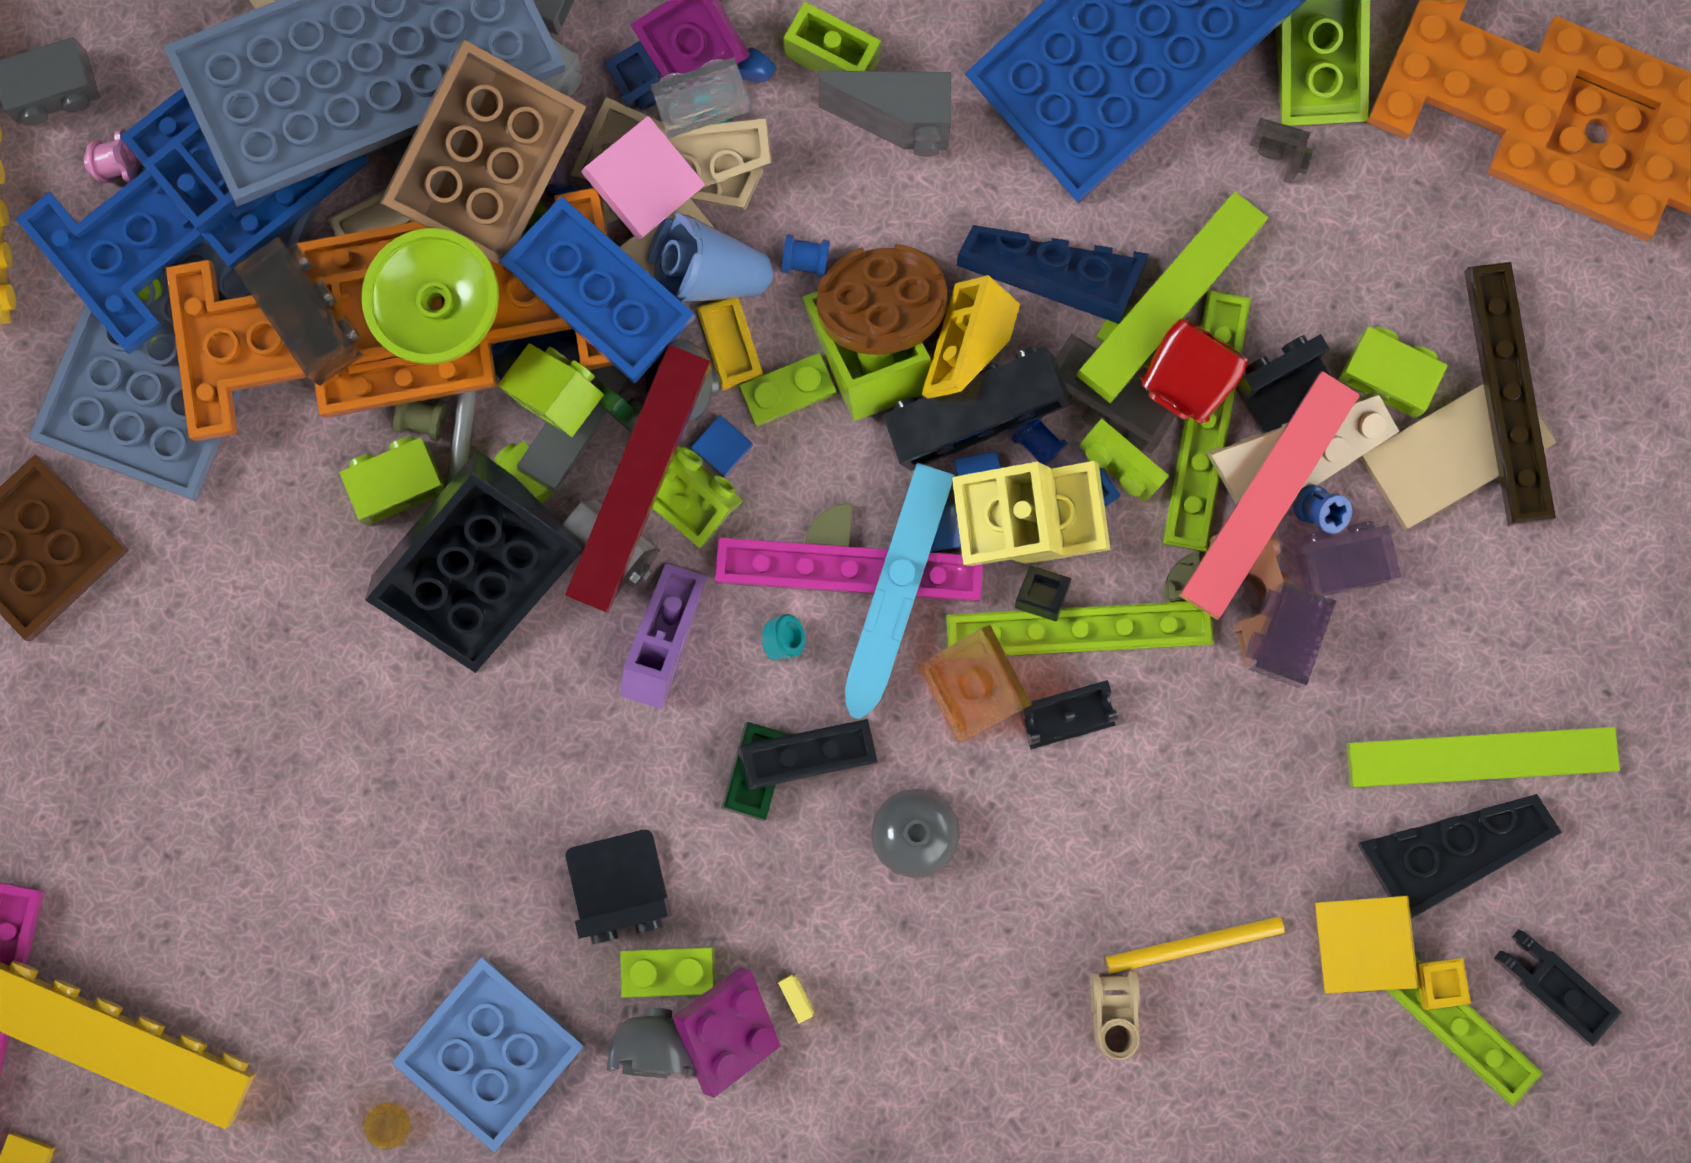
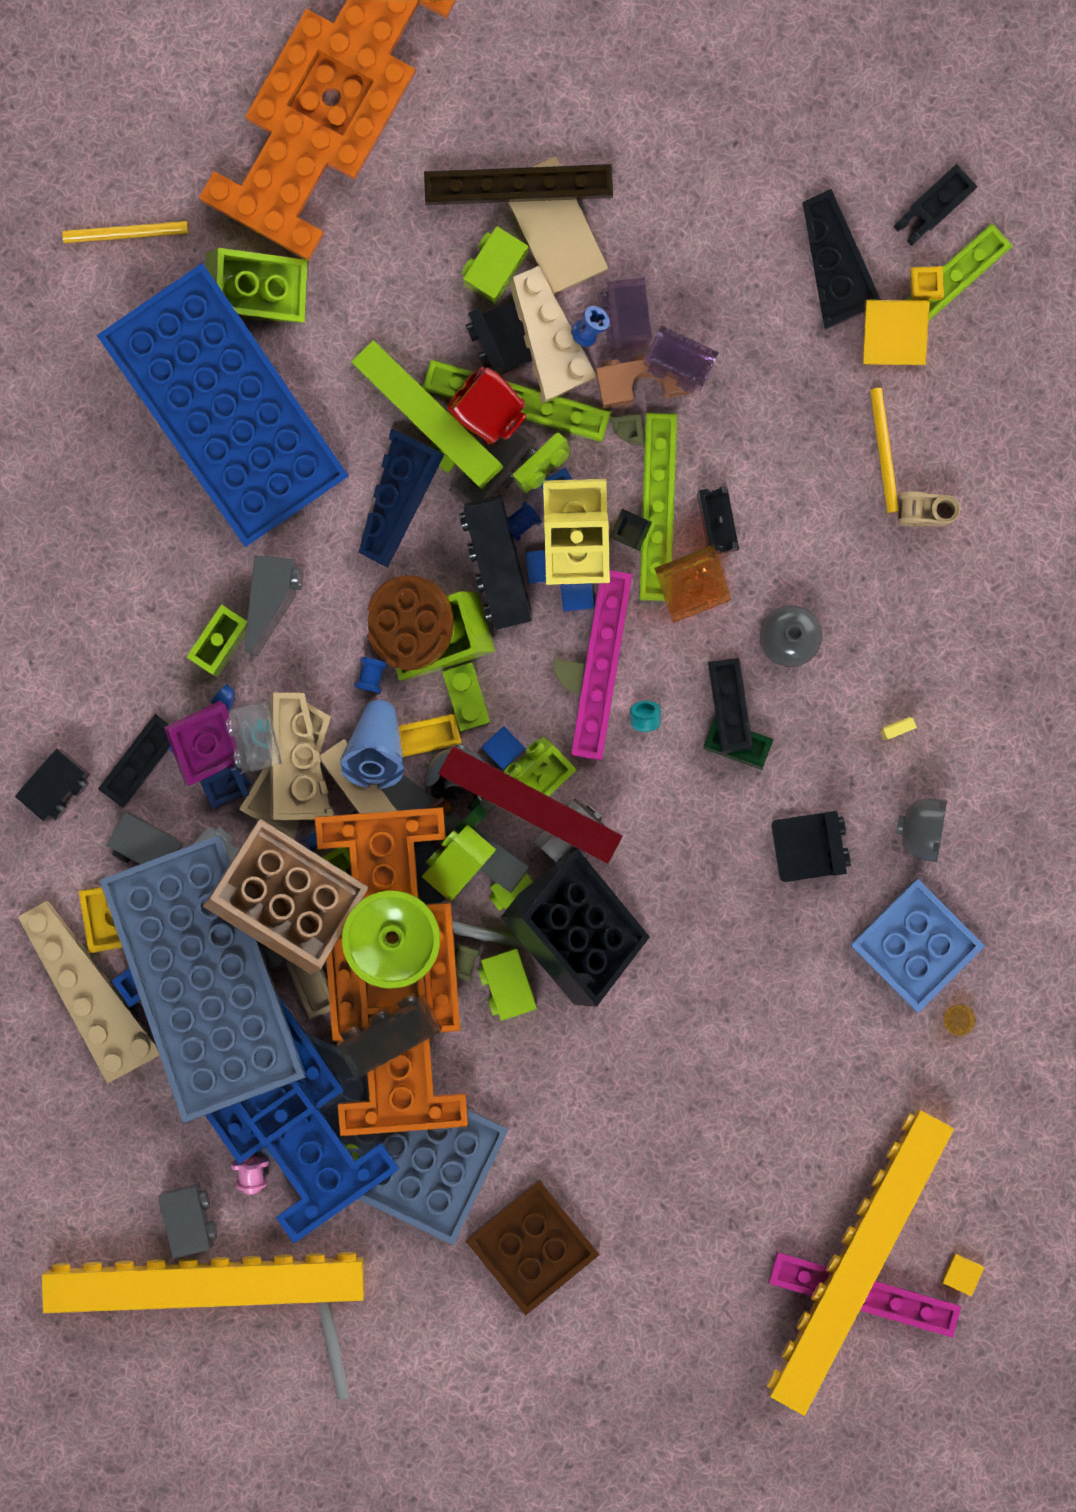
camera: 90 degrees left, 5 degrees up
(597, 289) = (393, 821): blue plate -> none
(643, 178) = (310, 784): bright pink tile -> none
(662, 636) = (636, 800): medium lavender slope -> none
(667, 971) = (872, 815): lime brick -> none
(726, 1031) = (918, 777): magenta plate -> none
(896, 589) = (619, 632): medium azure piece -> none
(972, 334) = (445, 561): yellow slope -> none
(1269, 495) = (579, 362): coral tile -> none
(1278, 140) = (317, 327): clear smoke bracket -> none
(1483, 757) = (772, 236): lime tile -> none

